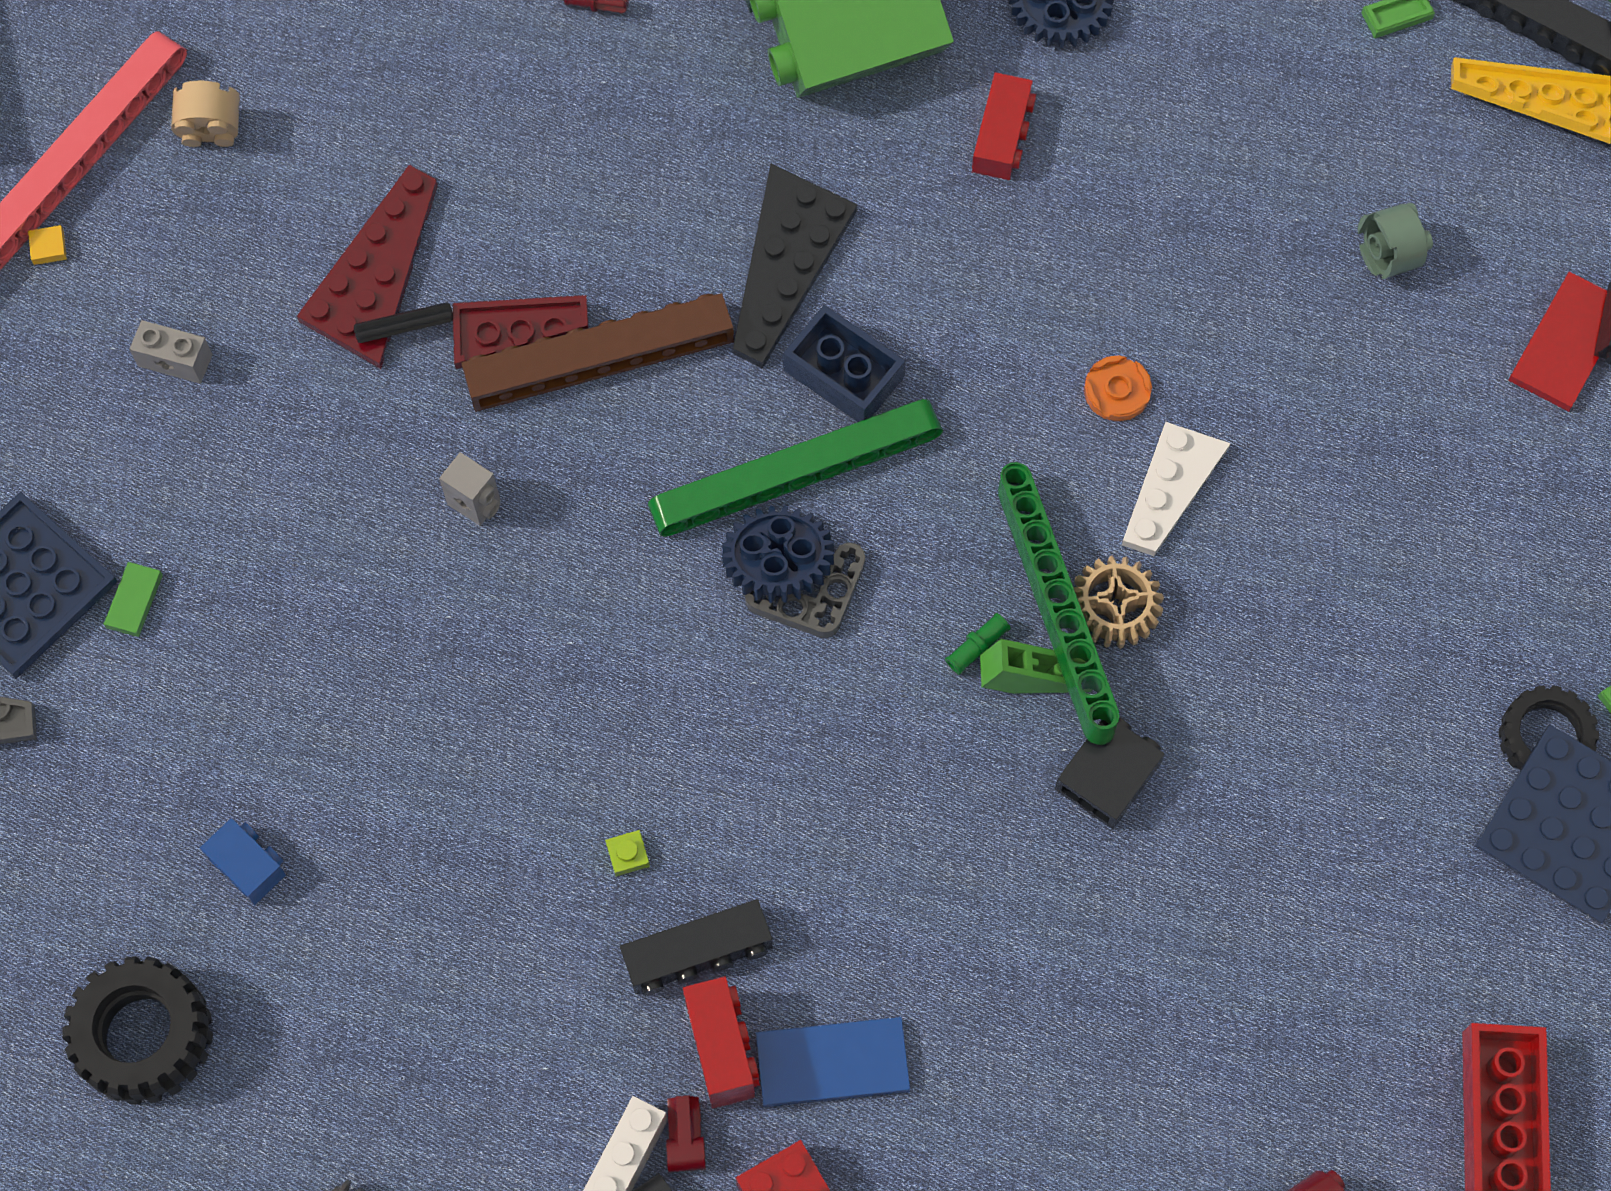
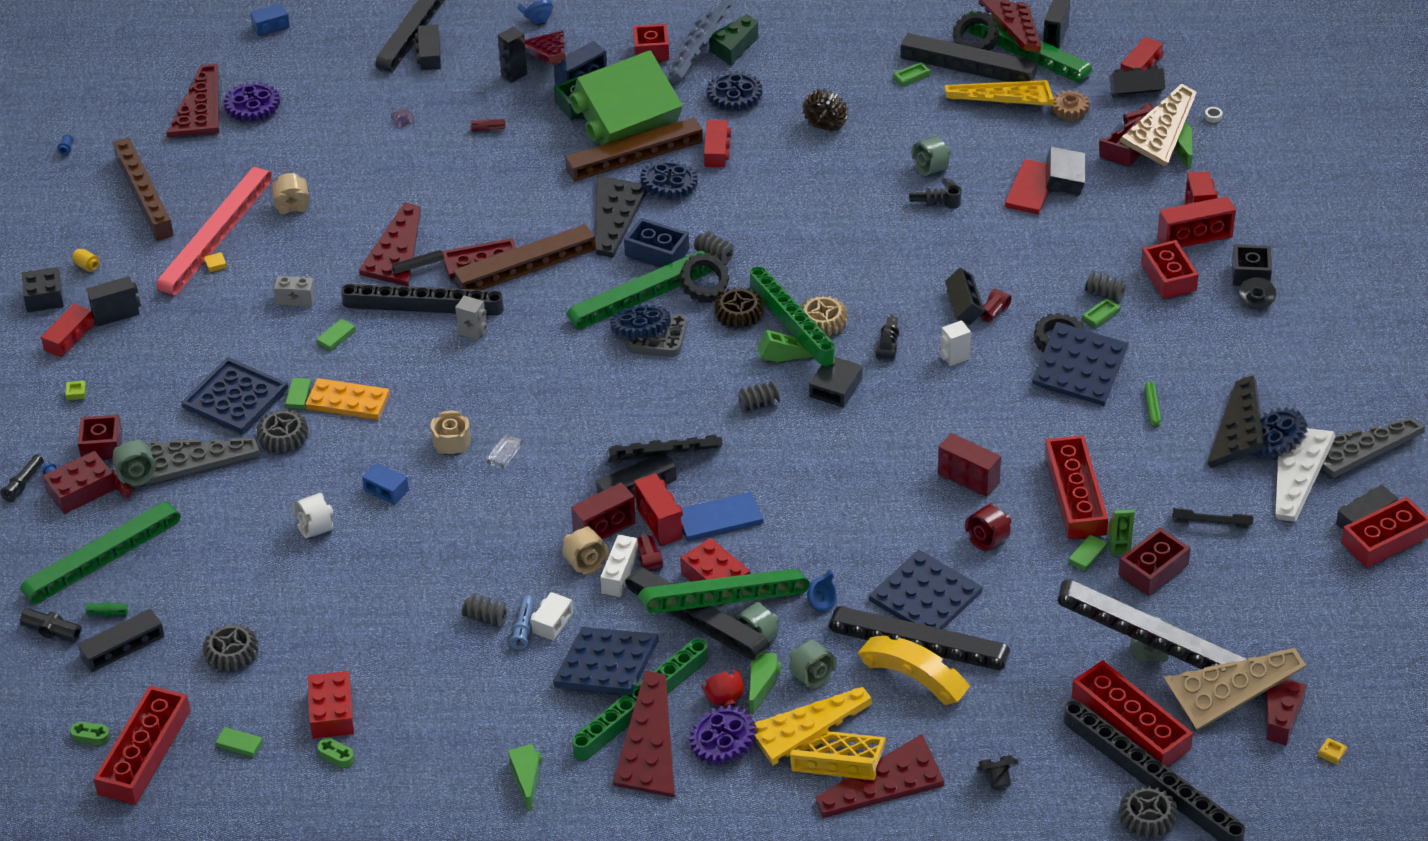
camera: 10 degrees left, 25 degrees down
(56, 697) = (282, 431): none -> dark grey gear
(93, 925) = (313, 515): none -> white brick
(105, 998) = (347, 571): black tyre -> none
(218, 630) = (347, 399): none -> light orange plate
(227, 466) = (336, 334): none -> bright green tile
(369, 749) = (450, 433): none -> tan brick
(405, 426) = (416, 298): none -> black beam
(473, 818) = (504, 451): none -> clear tile
(566, 1115) = (585, 550): none -> tan brick
(616, 1034) = (605, 512): none -> brick
(627, 853) = (590, 452): lime plate -> none
(748, 886) = (655, 447): none -> black wing
(849, 111) = (634, 149): none -> reddish brown brick
(869, 191) = (682, 179): none -> dark blue gear
(948, 392) = (714, 246): none -> dark grey piece
(950, 468) = (707, 261): none -> black tyre
(951, 549) = (738, 308): none -> dark brown gear
(958, 783) = (759, 394): none -> dark grey piece
(977, 643) = (752, 345): green pin -> none
(1117, 388) = (802, 237): orange tile -> none
(1172, 481) = (840, 269): white wing -> none
(1218, 89) = (815, 107): none -> dark brown gear
(1218, 705) = (887, 345): none -> black piece
(1315, 1049) = (969, 464): none -> dark red brick
(1349, 732) = (955, 343): none -> white brick
(1389, 609) = (964, 296): none -> black brick
(1392, 340) = (950, 196): none -> black piece
(1447, 629) = (996, 302): none -> dark red piece

